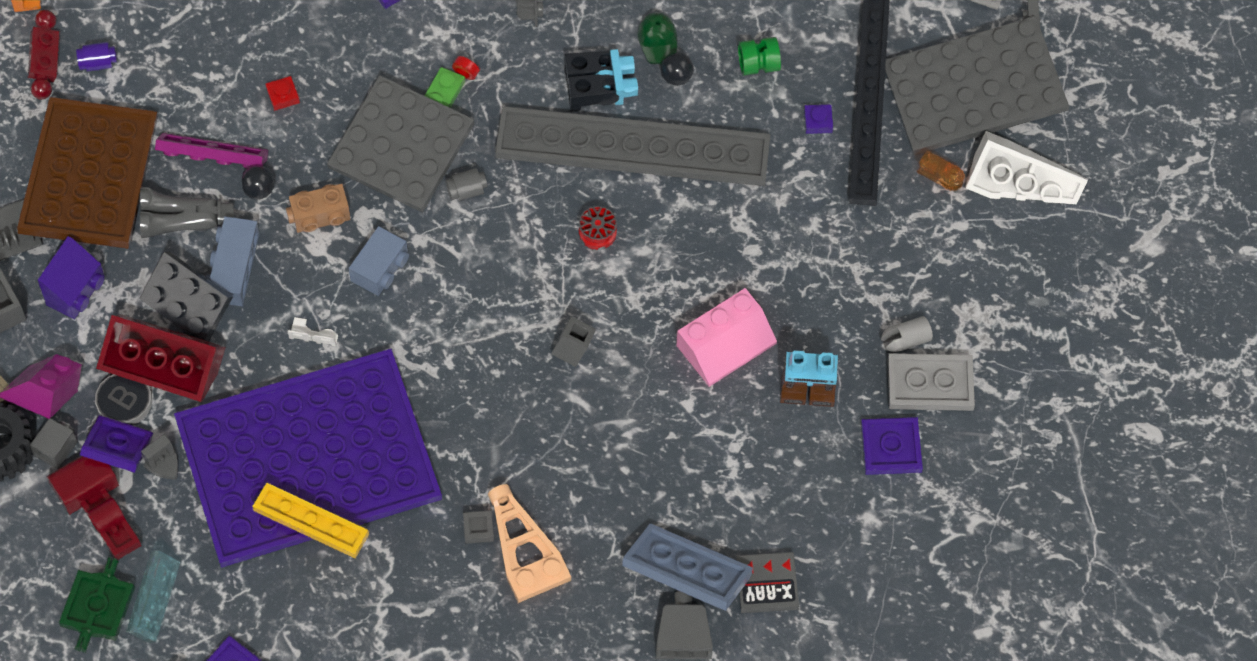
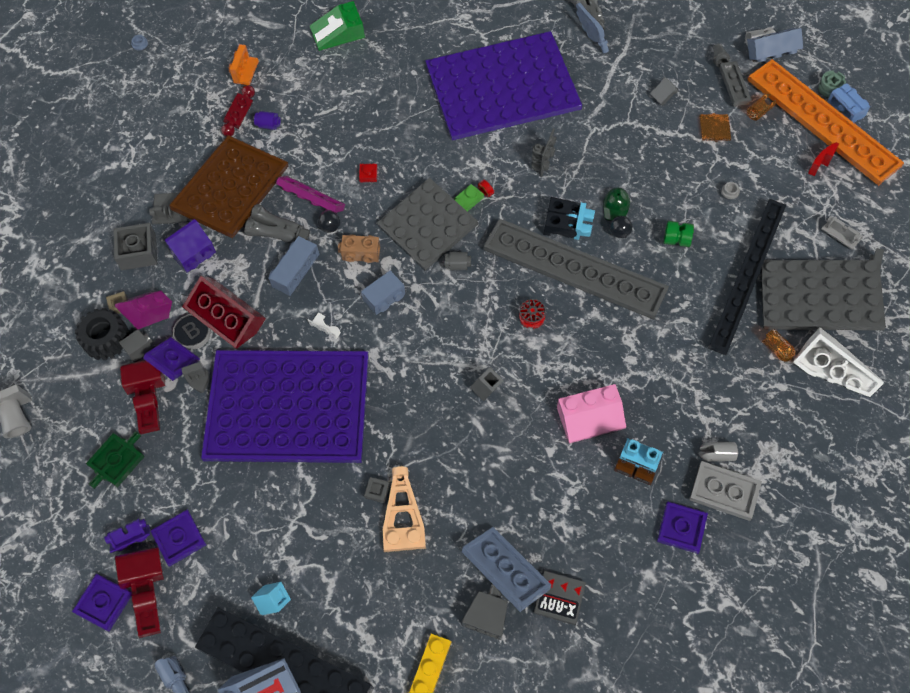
camera: 25 degrees right, 0 degrees up
(153, 596) = (151, 466): clear light blue plate -> none
(186, 297) = (254, 279): plate -> none
(311, 520) = (268, 449): yellow plate -> none
(818, 119) = (705, 286): dark purple plate -> none

